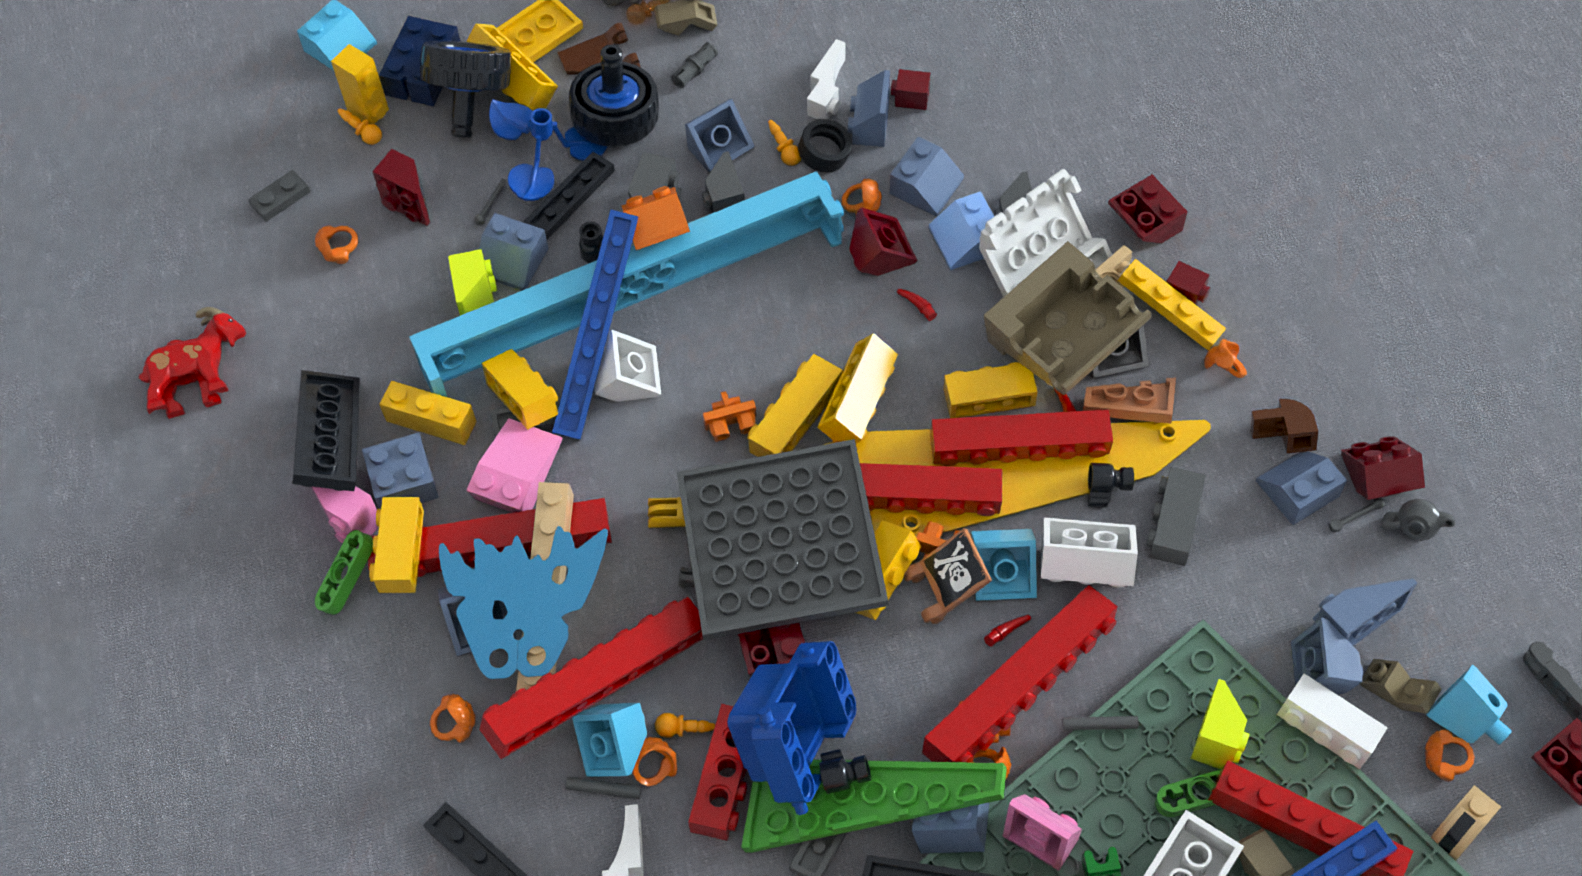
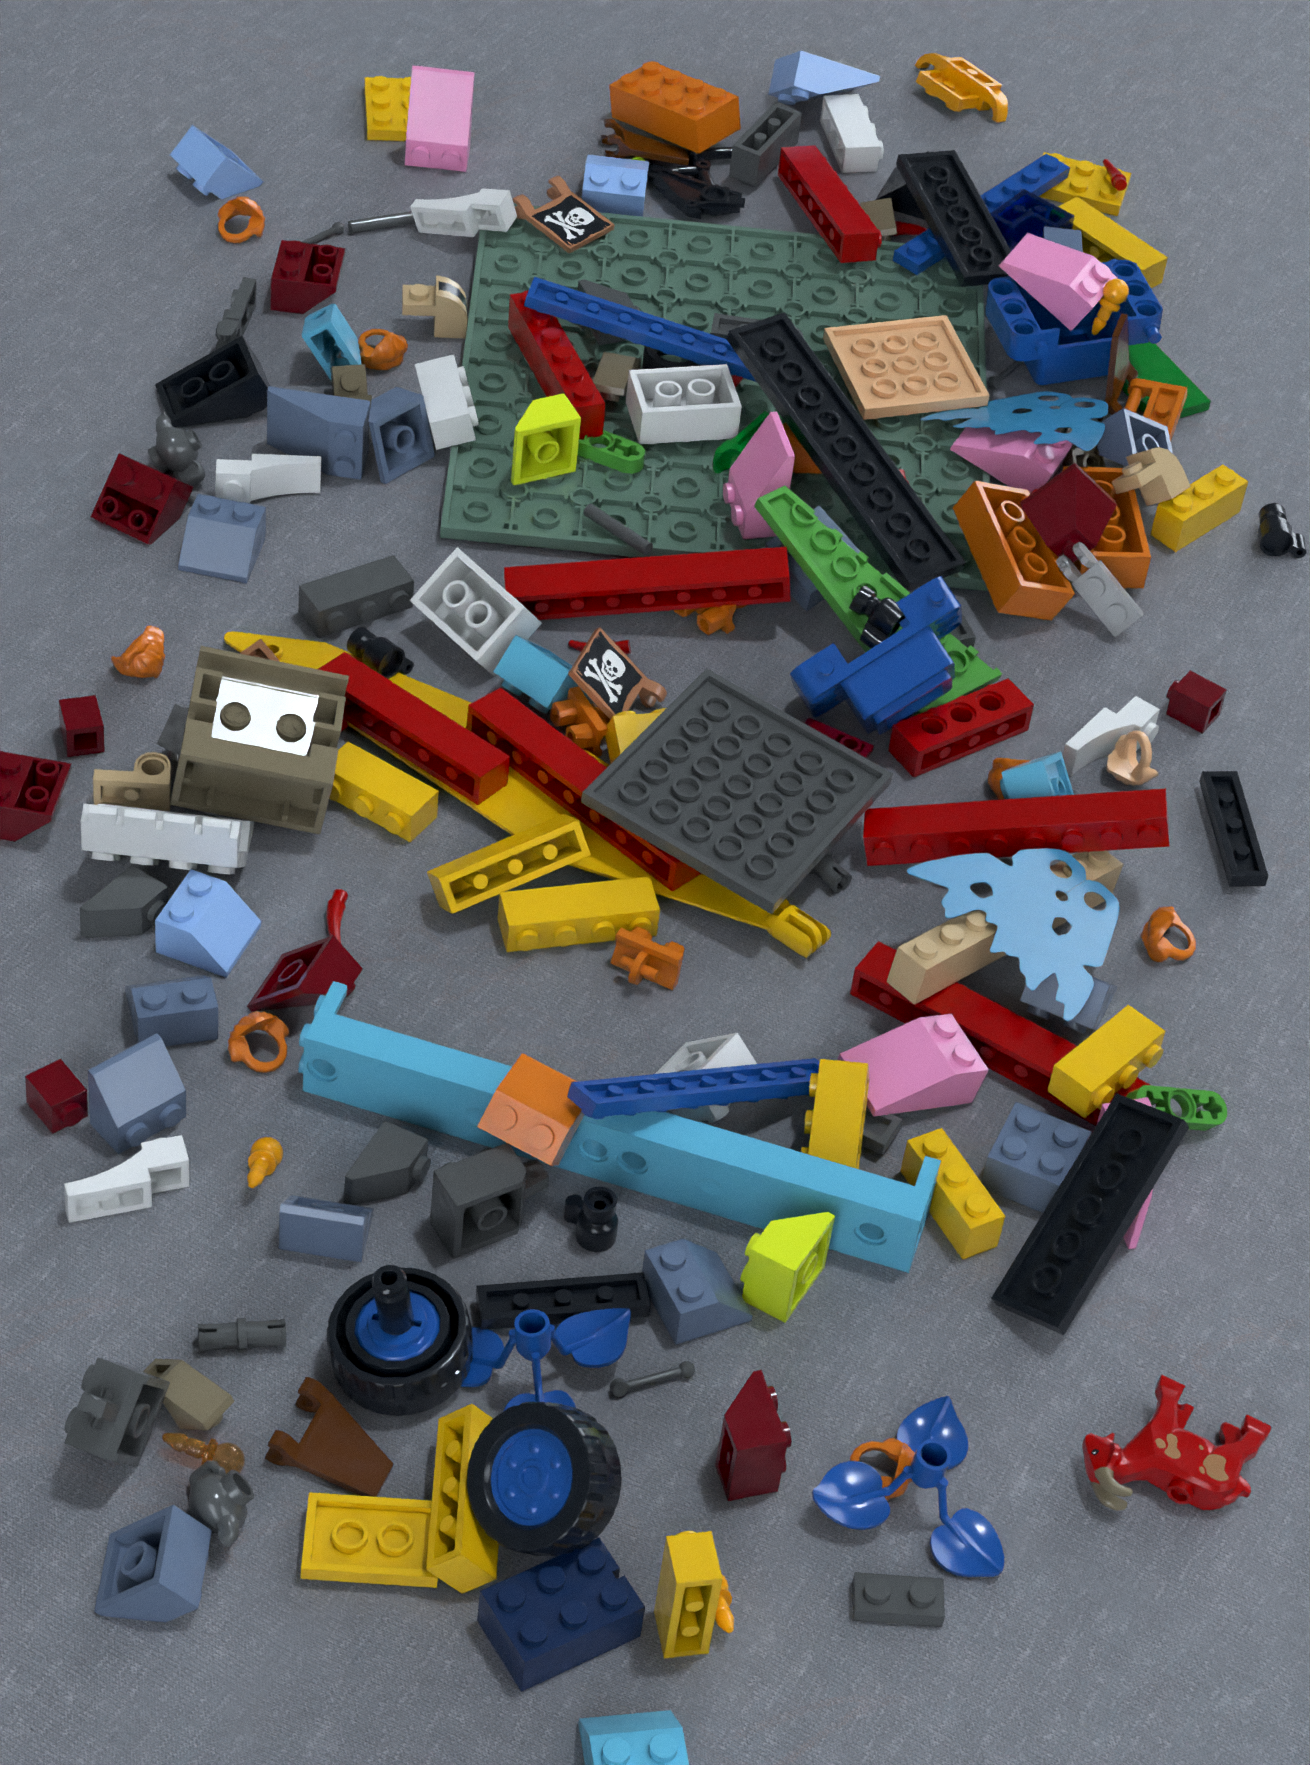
camera: 145 degrees left, 15 degrees down
(269, 244) = (855, 1496): none -> blue plant
(590, 847) = (1123, 761): none -> light nougat piece
(669, 725) = (964, 785): light orange bar -> none
(831, 130) = (232, 1132): black tyre -> none
(1171, 304) = (123, 716): yellow plate -> none
(1291, 421) = (168, 571): reddish brown brick -> none
(1349, 549) = (267, 476): none -> white slope
(1477, 604) = (216, 387): none -> black slope

